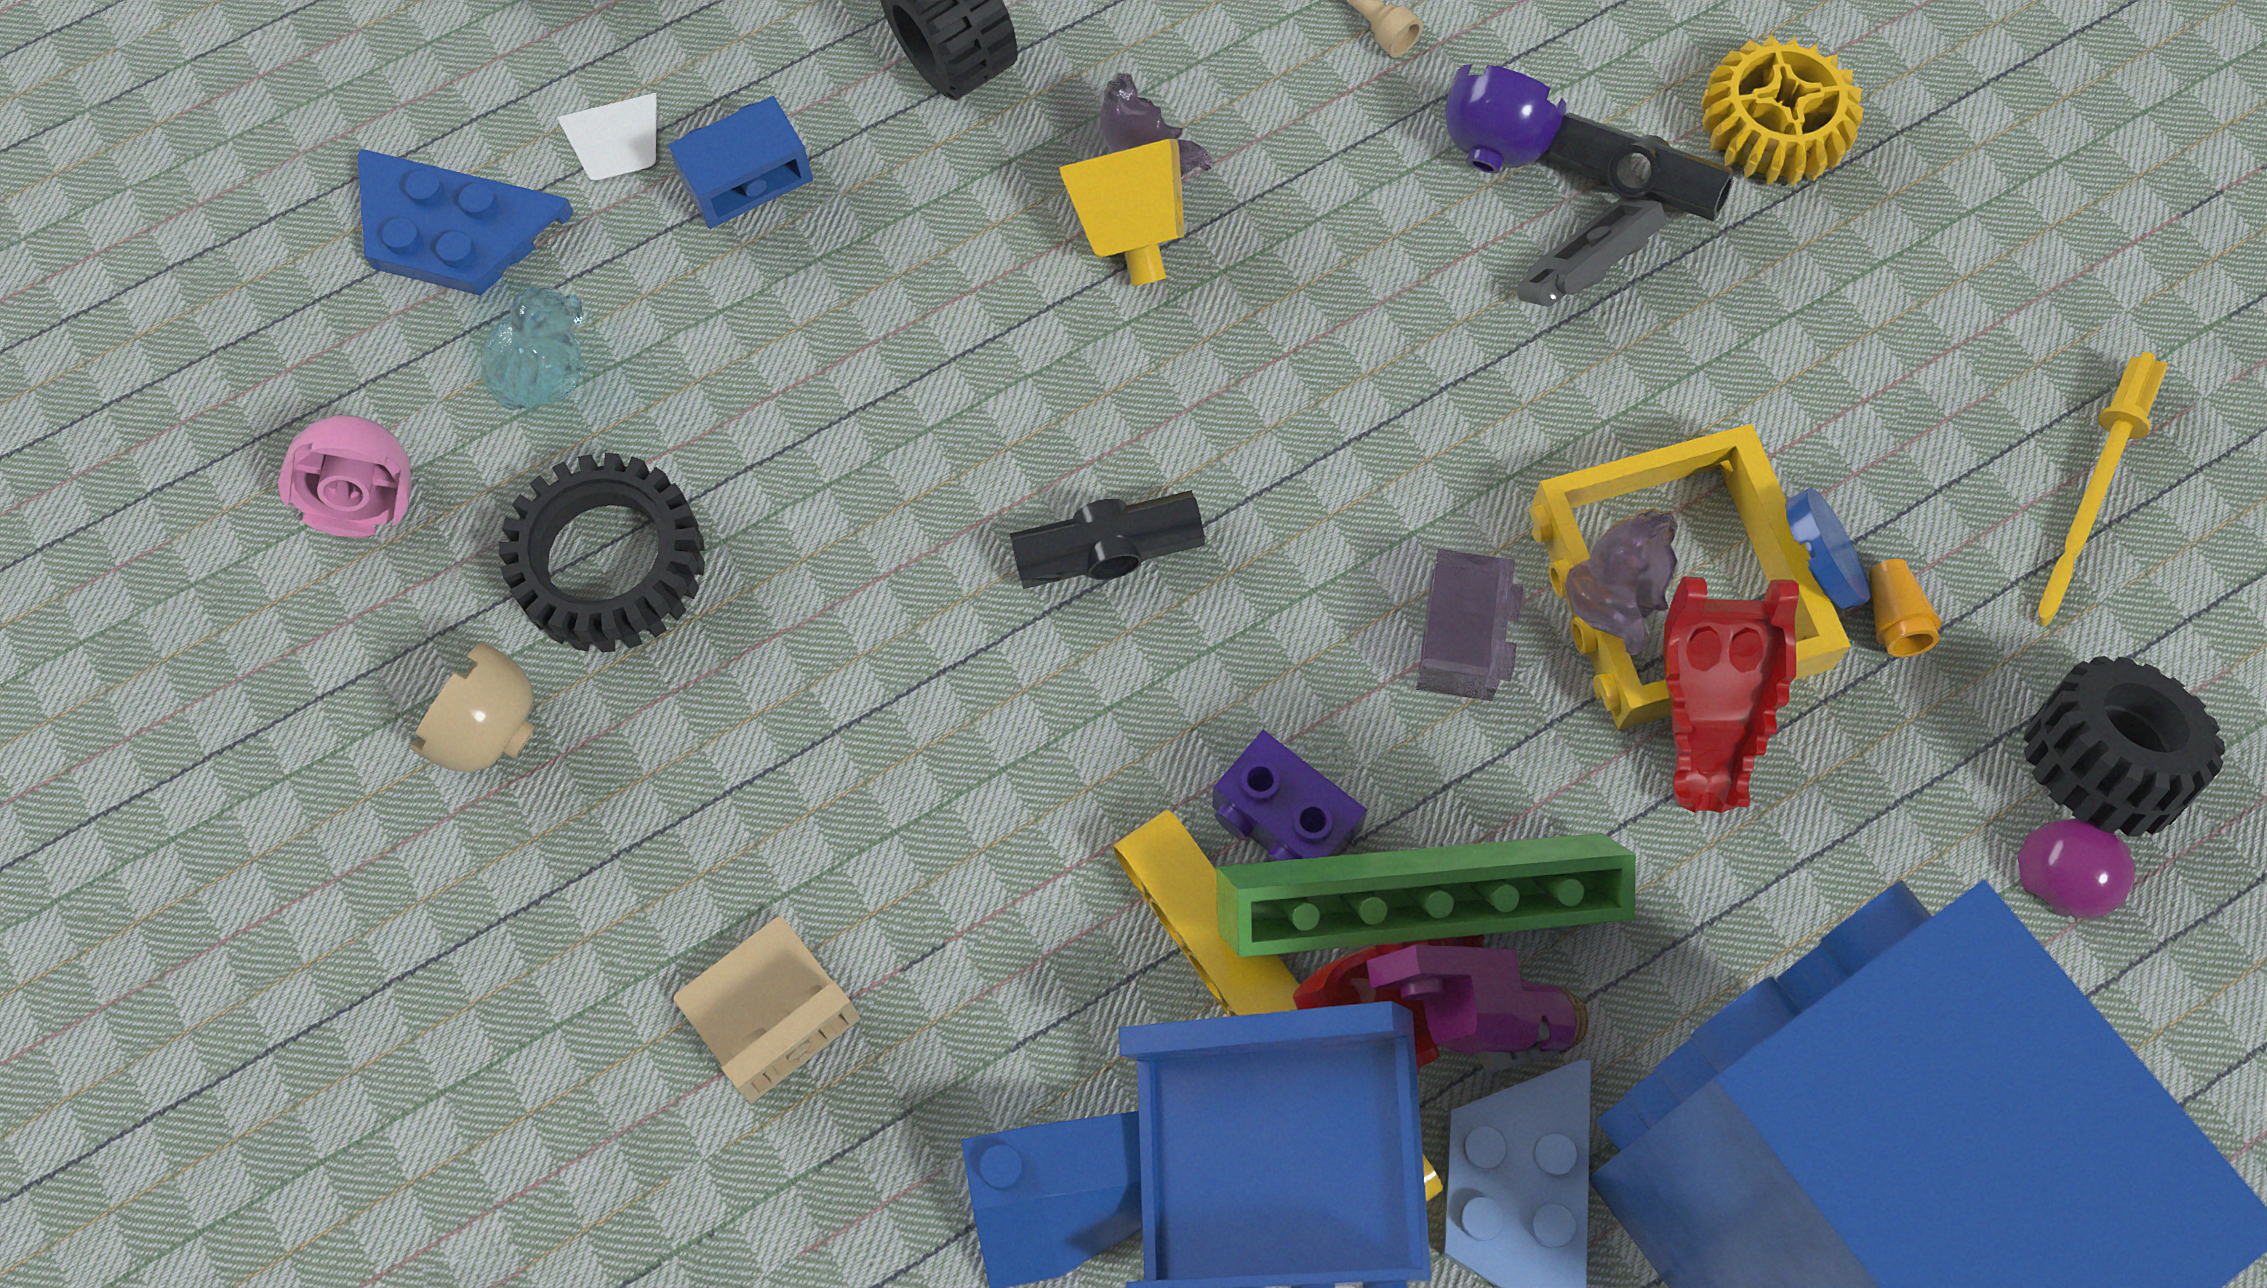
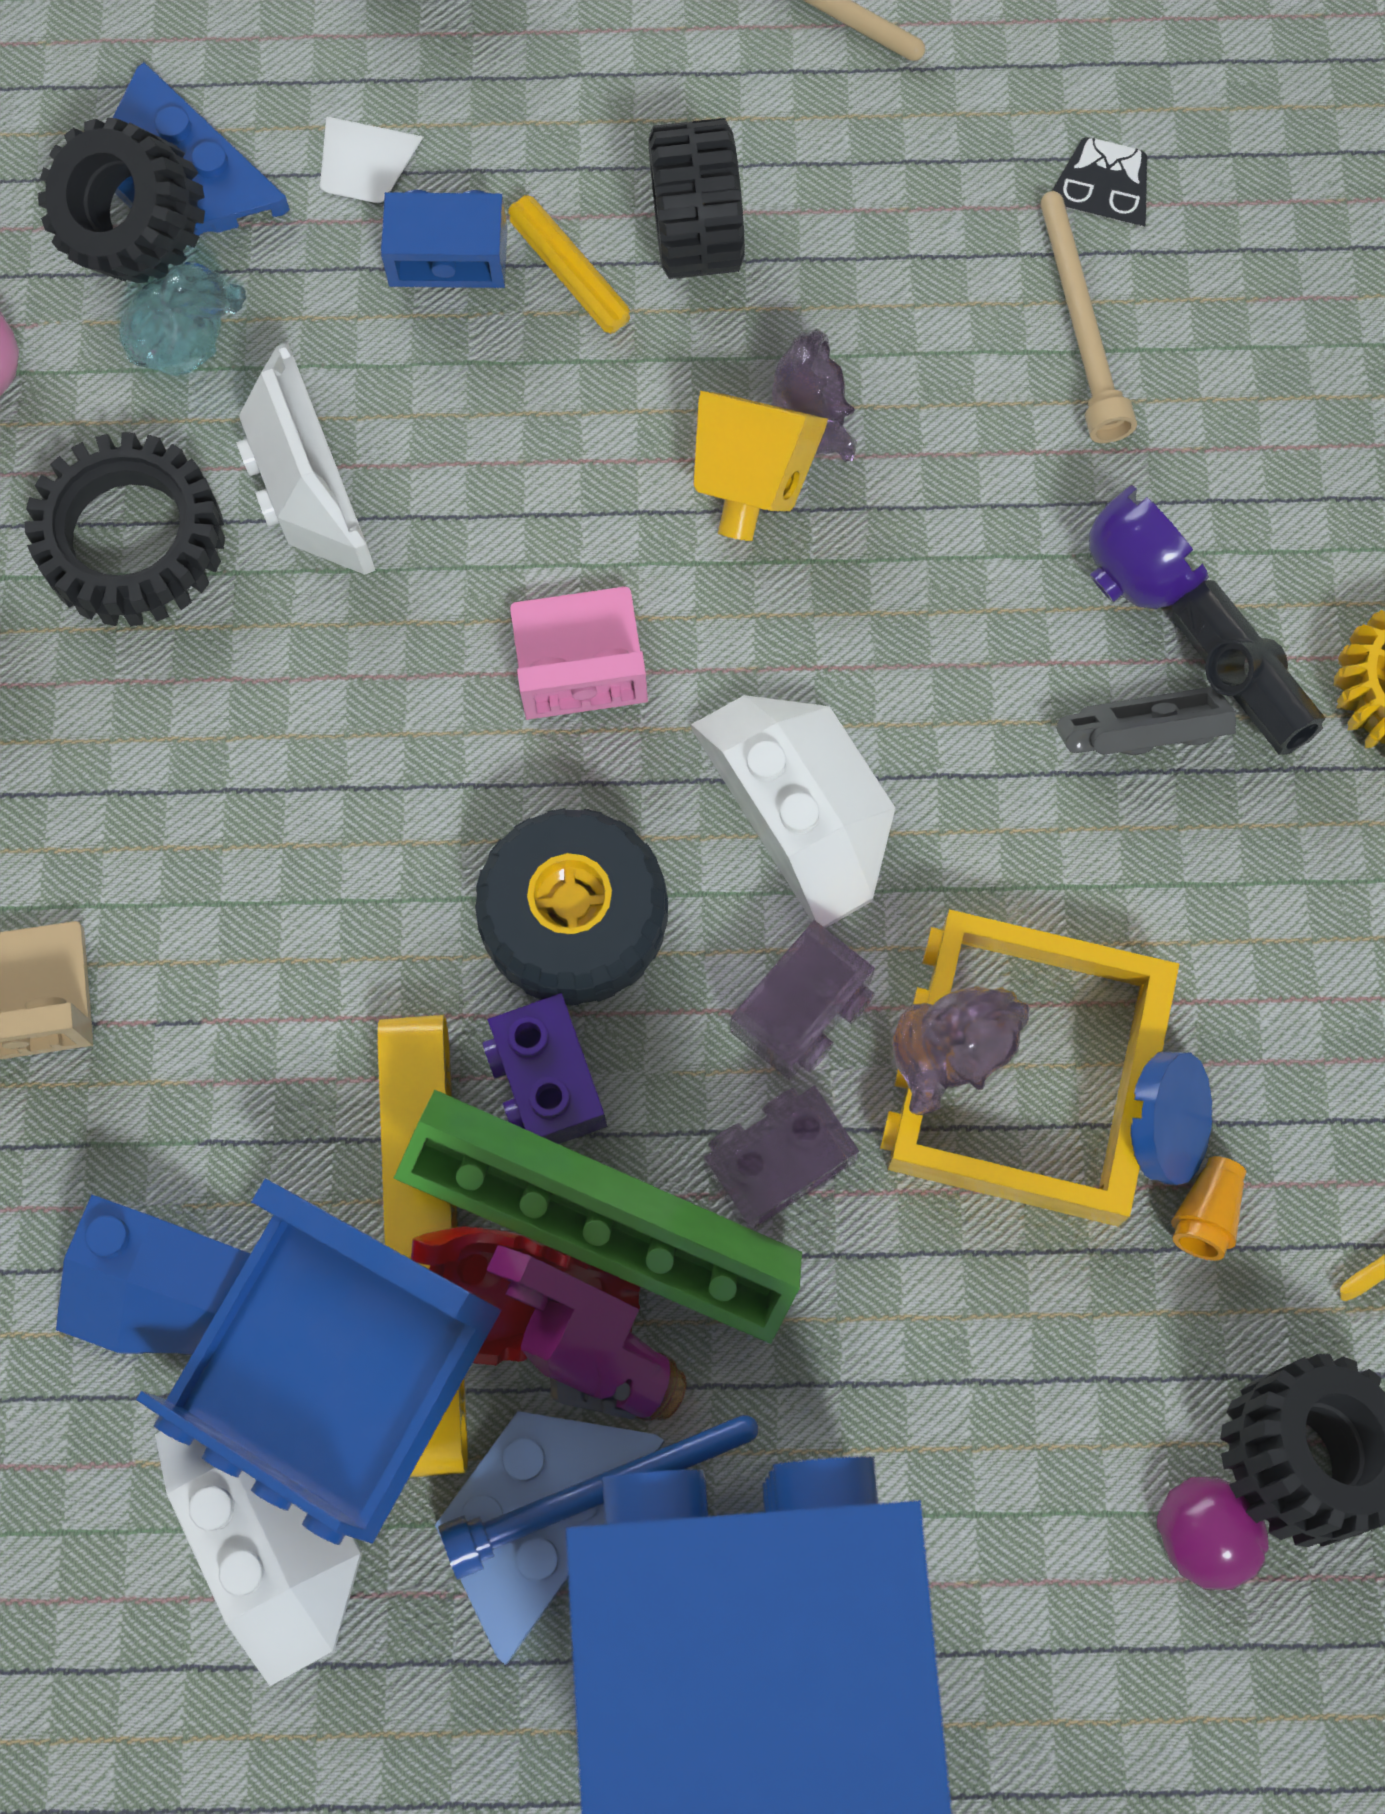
camera: 30 degrees right, 5 degrees up
(380, 258) = (82, 191): none -> black tyre
(734, 420) = (298, 467): none -> white wedge
(860, 133) = (569, 264): none -> yellow axle
(1082, 444) = (578, 653): none -> bright pink bracket
(1107, 539) = (547, 750): black piece -> none
(1226, 621) = (572, 906): none -> black wheel
(1349, 463) = (804, 798): none -> white wedge
(1495, 1241) = (473, 1541): none -> blue piece
(1531, 766) = (779, 1156): none -> clear purple brick
(1725, 681) = (980, 1187): red animal -> none

